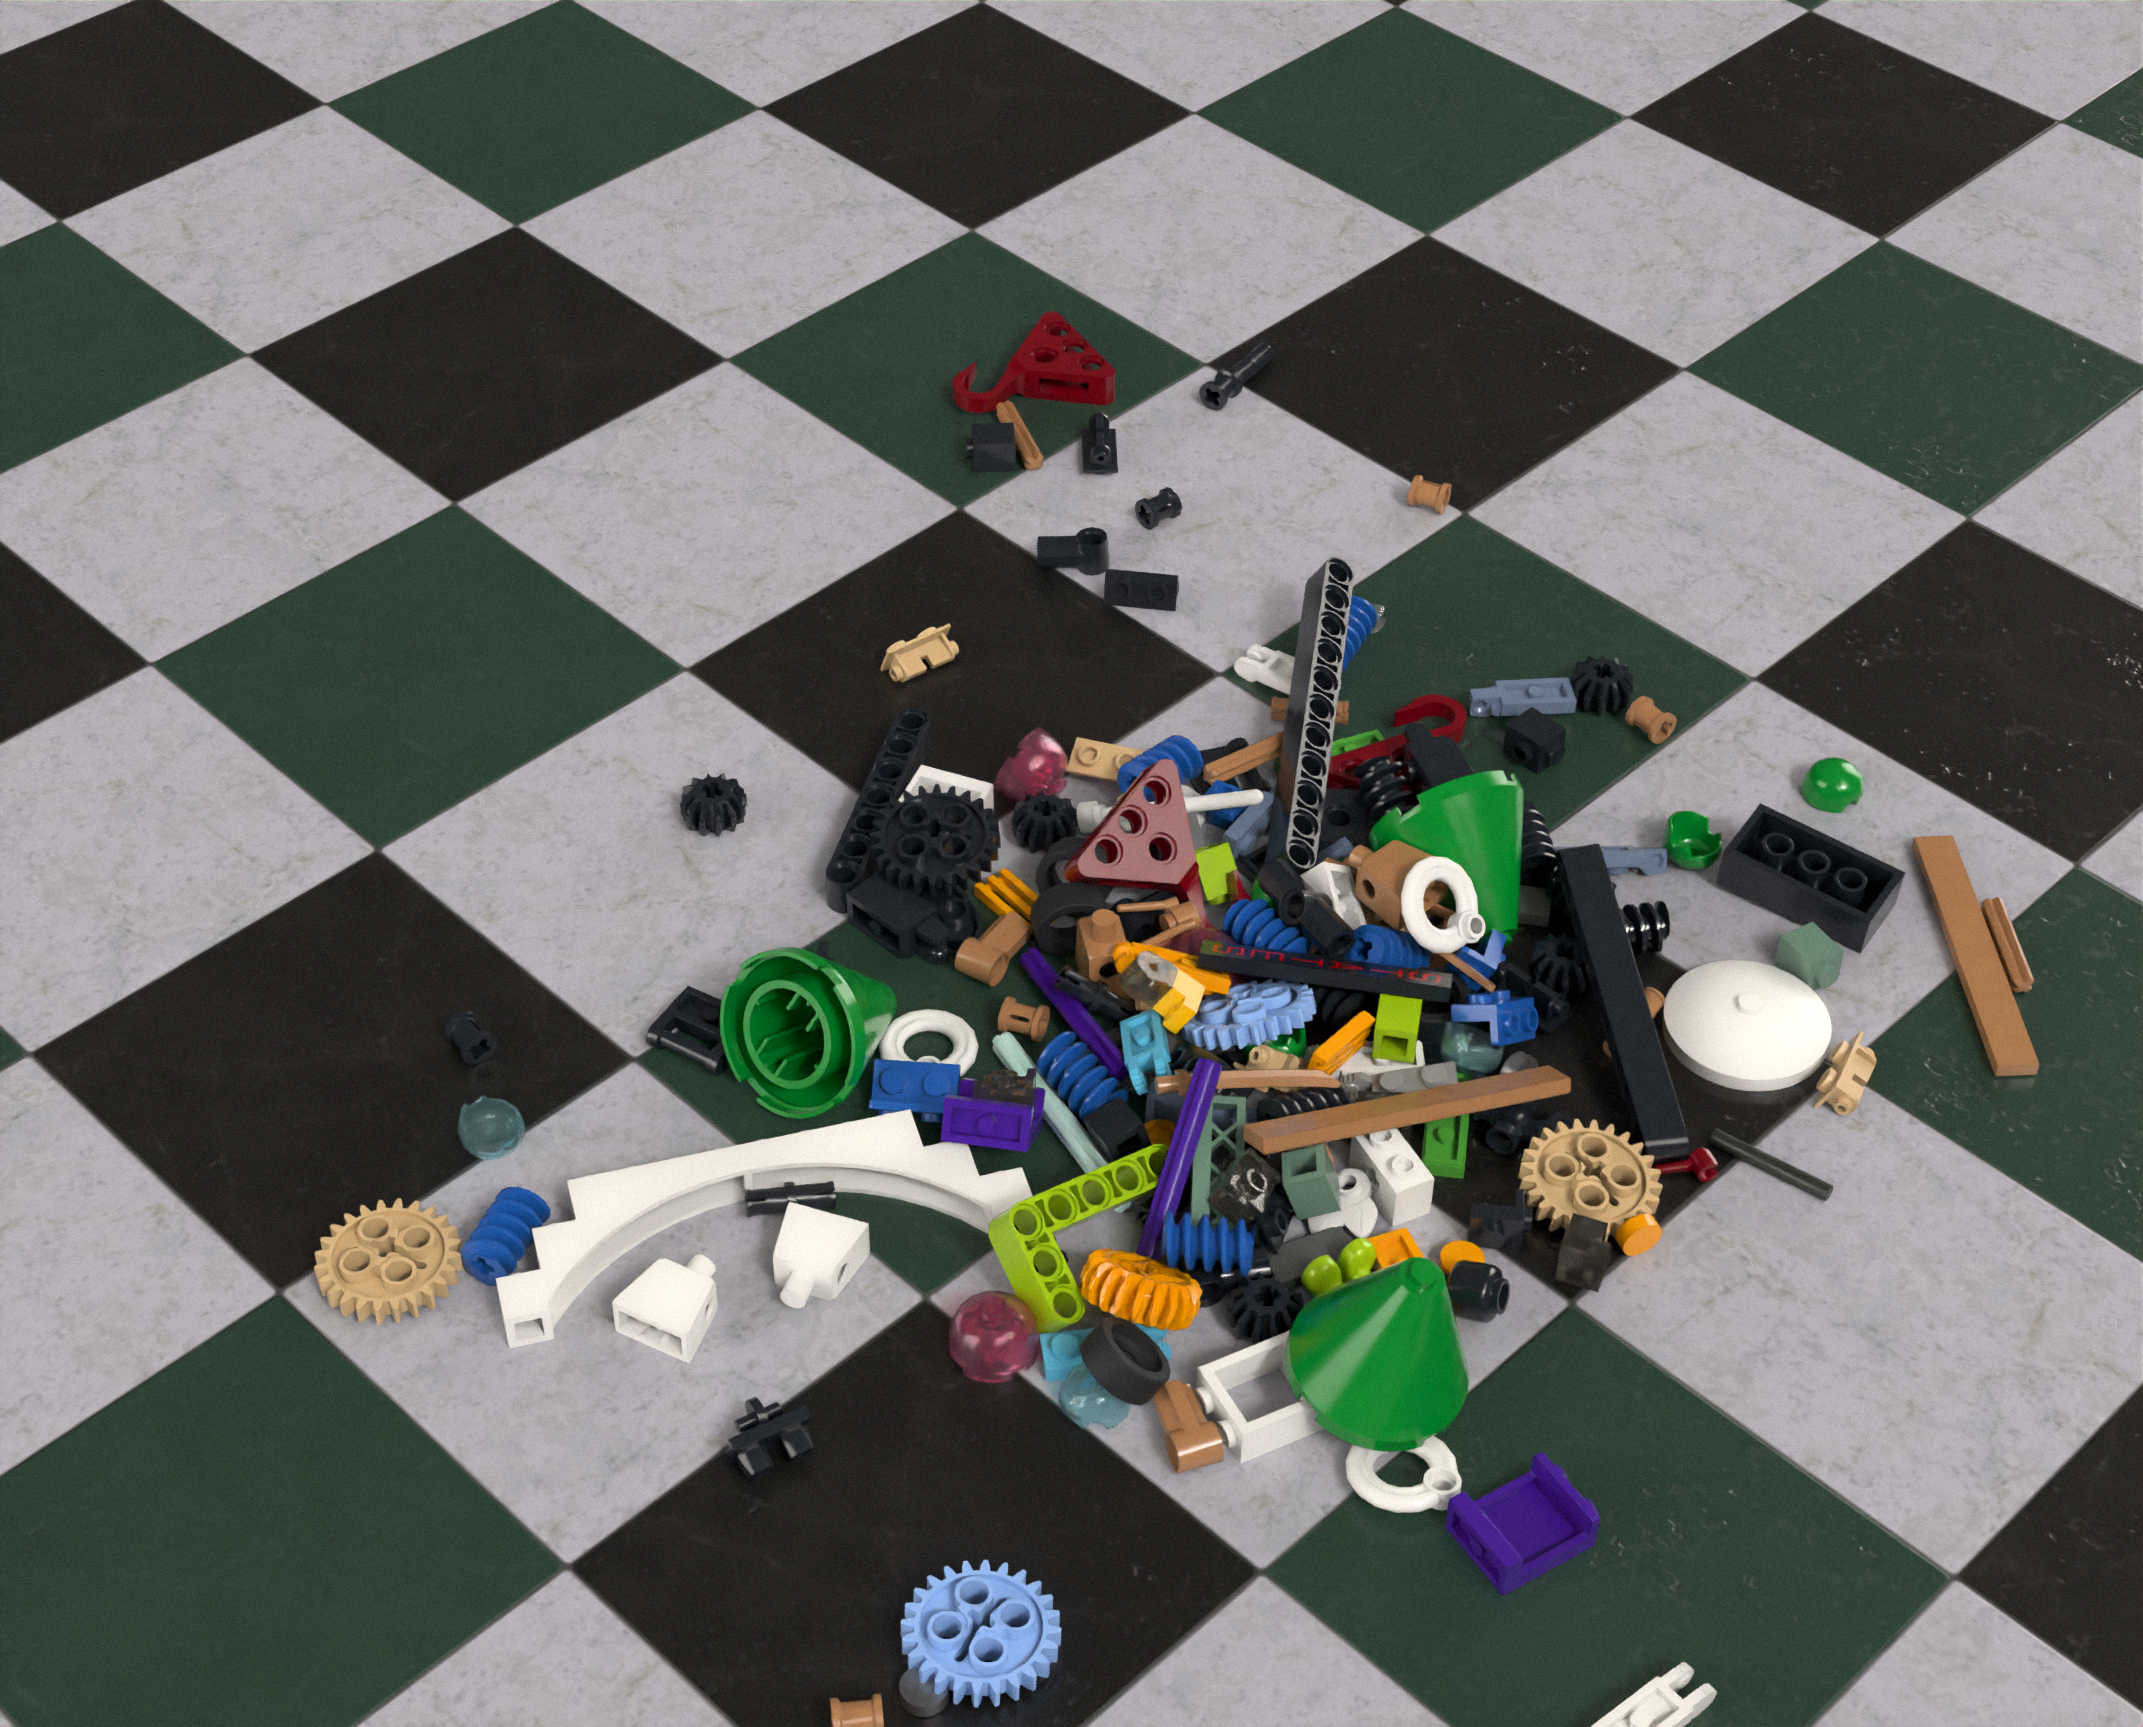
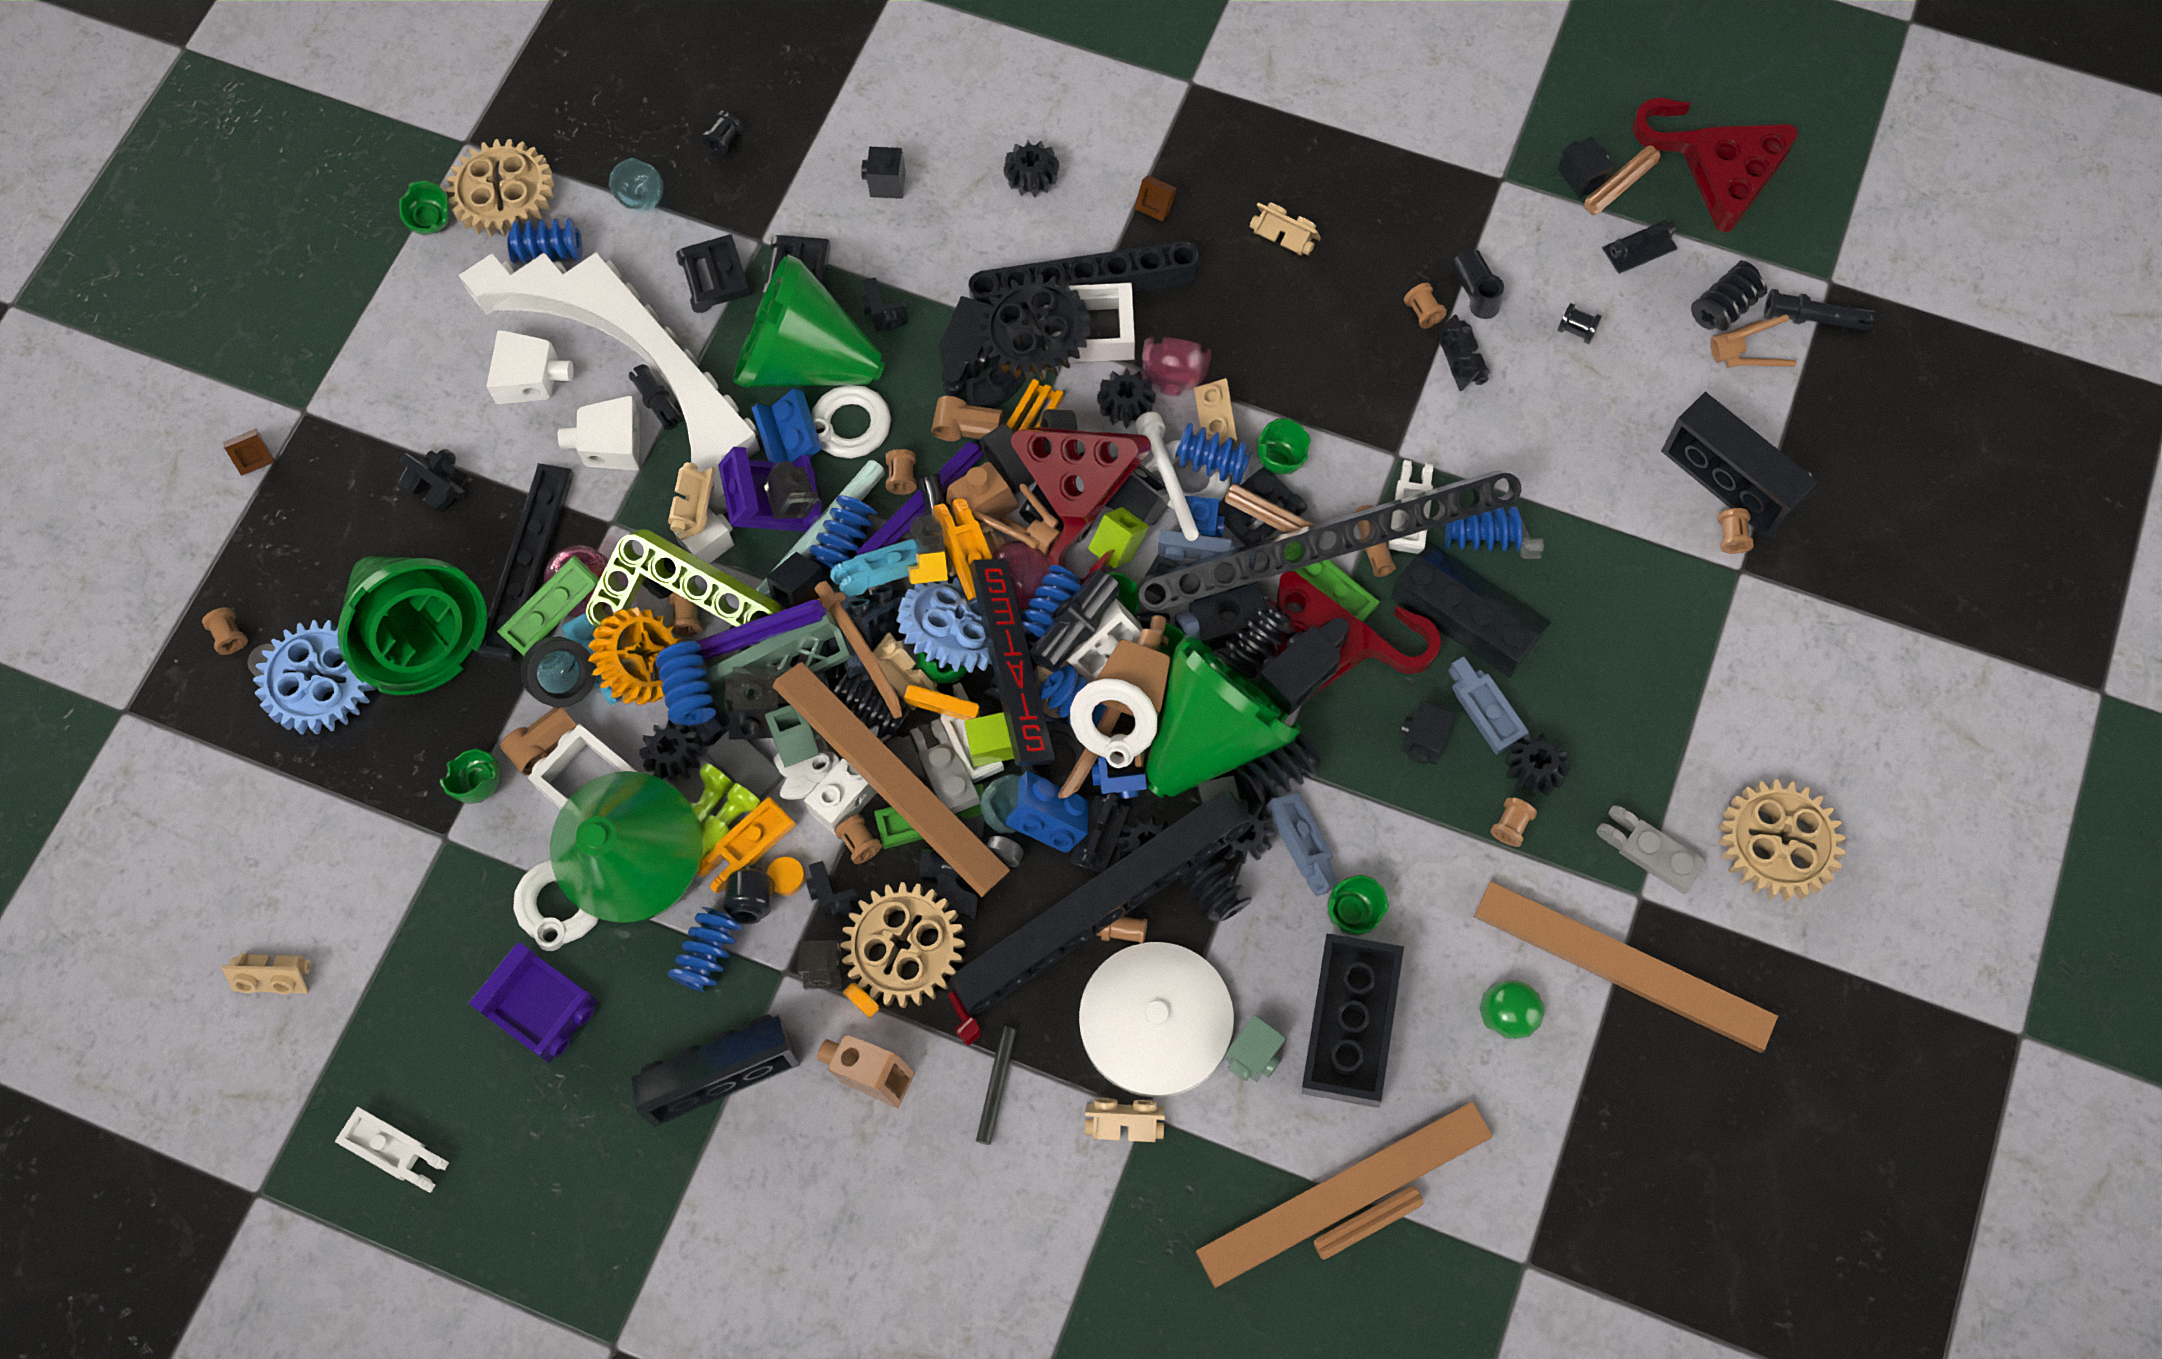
camera: 70 degrees right, 25 degrees up
(368, 1337) = (425, 208): none -> green hair
(601, 1624) = (248, 452): none -> reddish brown tile
(634, 914) = (884, 172): none -> black brick
(655, 1090) = (724, 270): none -> black plate
(819, 727) = (1155, 198): none -> reddish brown tile
(935, 1388) = (527, 555): none -> black tile
(957, 1488) = (409, 623): none -> green cone
(978, 1171) = (689, 514): none -> tan hinge
(1028, 1352) = (549, 605): none -> bright green tile
(1063, 587) = (1425, 305): none -> medium nougat bush
(1085, 1243) = (684, 616): none -> medium nougat bush
(1170, 721) = (1283, 446): none -> green hair
(1193, 412) = (1729, 297): none -> black piece
(1205, 1502) = (472, 776): none -> green hair
(1239, 433) = (1731, 344): none -> medium nougat plant
(1372, 460) = (1738, 465): none -> black brick
(1440, 668) = (1469, 609): none -> black slope
(1464, 1186) = (858, 839): none -> medium nougat bush
(1525, 1346) = (704, 949): none -> blue piece
(1674, 1370) = (714, 1070): none -> black slope
(1713, 652) = (1652, 850): none -> light grey hinge
(1724, 1240) = (867, 1068): none -> medium nougat torso
(1761, 572) = (1778, 871): none -> tan gear
(1815, 707) = (1626, 967): none -> medium nougat tile

